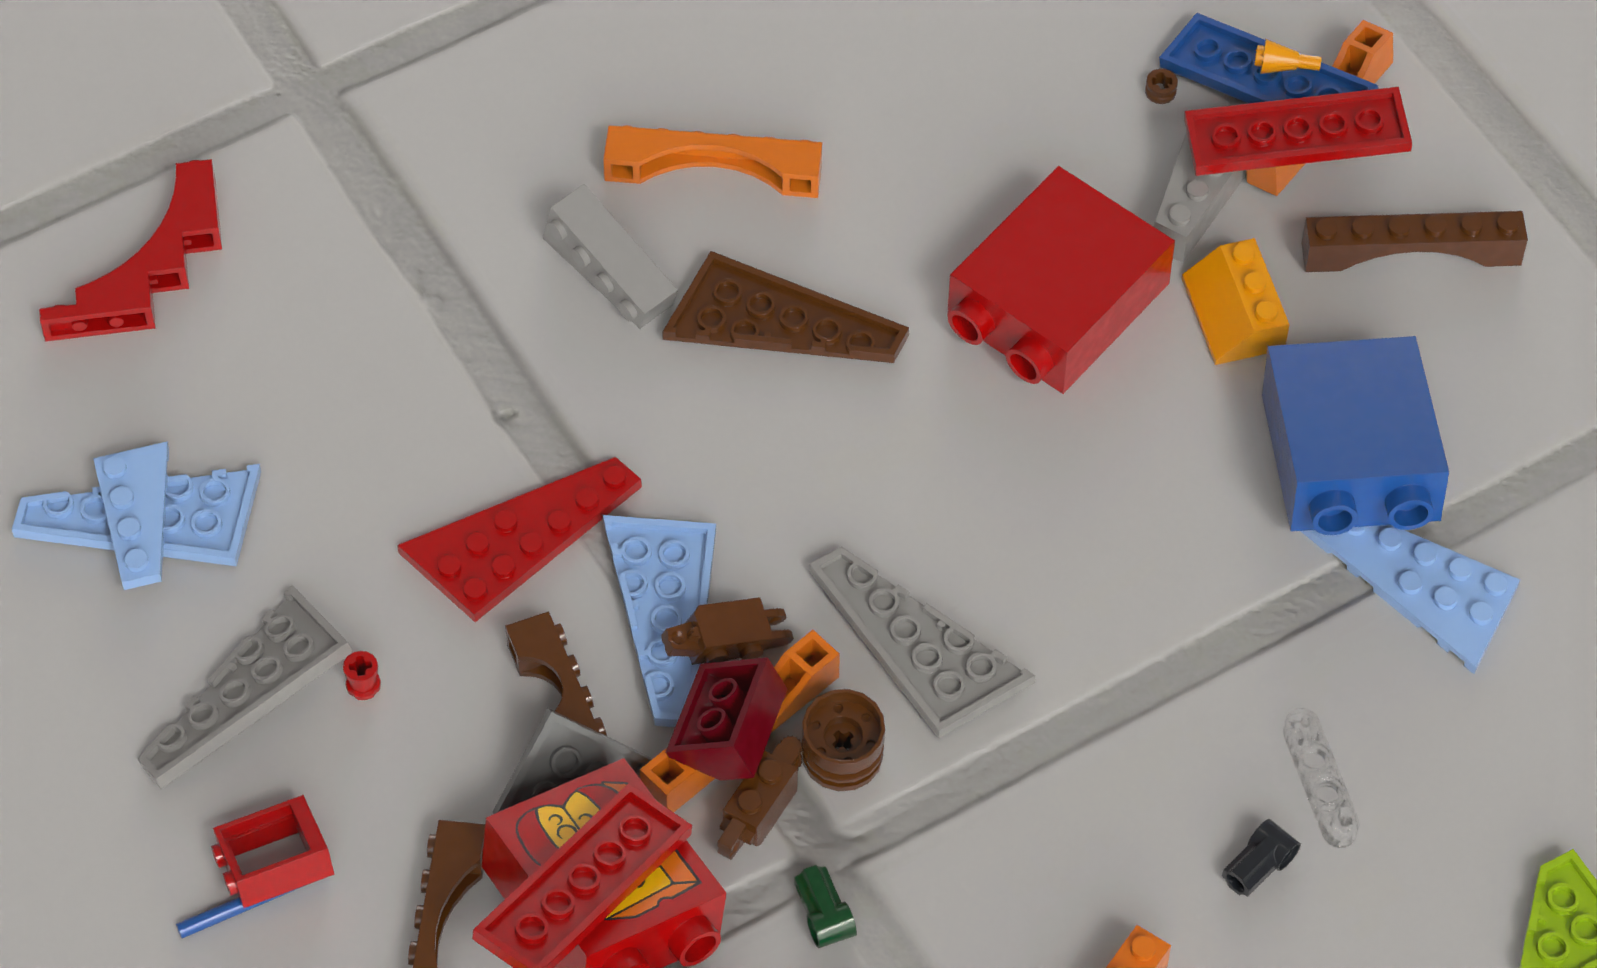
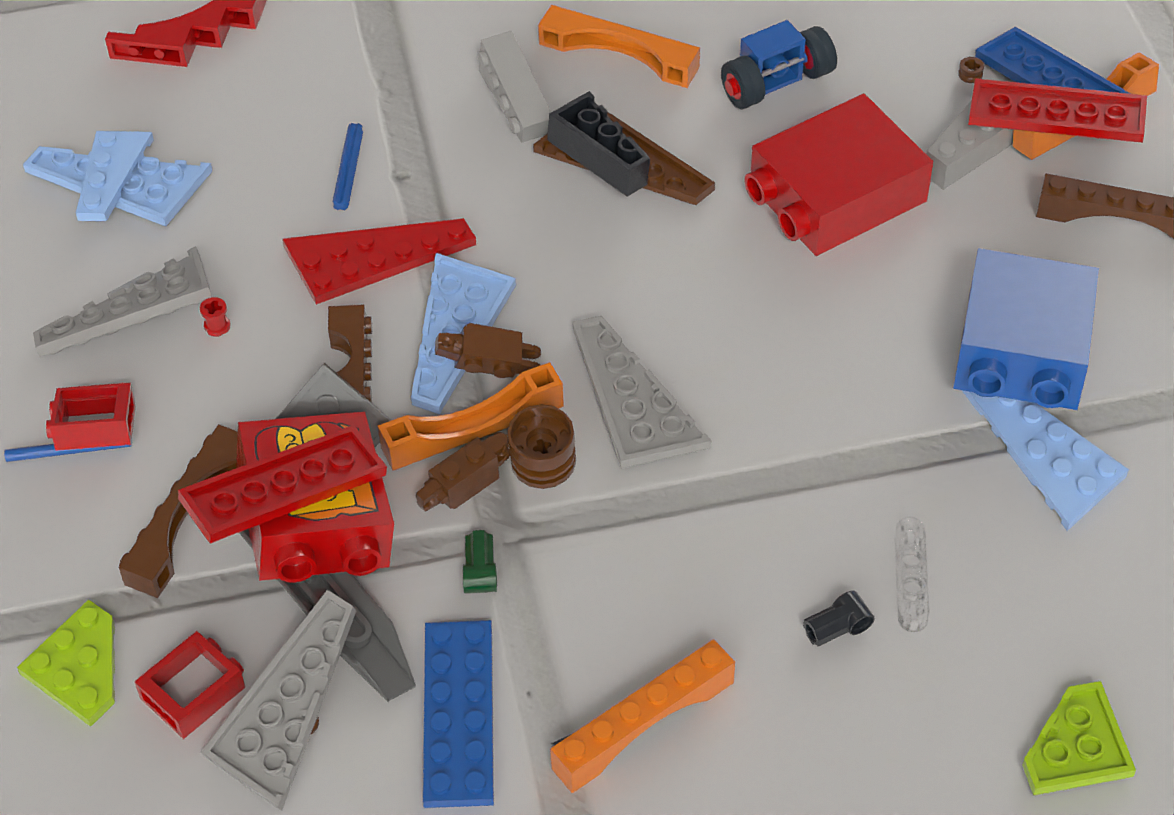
camera: 20 degrees right, 5 degrees down
(435, 421) = (347, 166): none -> blue axle
(728, 718) = (458, 406): dark red slope -> none
(754, 315) = (599, 144): none -> black wedge
(922, 137) = (775, 60): none -> brick
(1236, 302) = (970, 220): light orange slope -> none
(1278, 58) = (1063, 62): light orange cone -> none

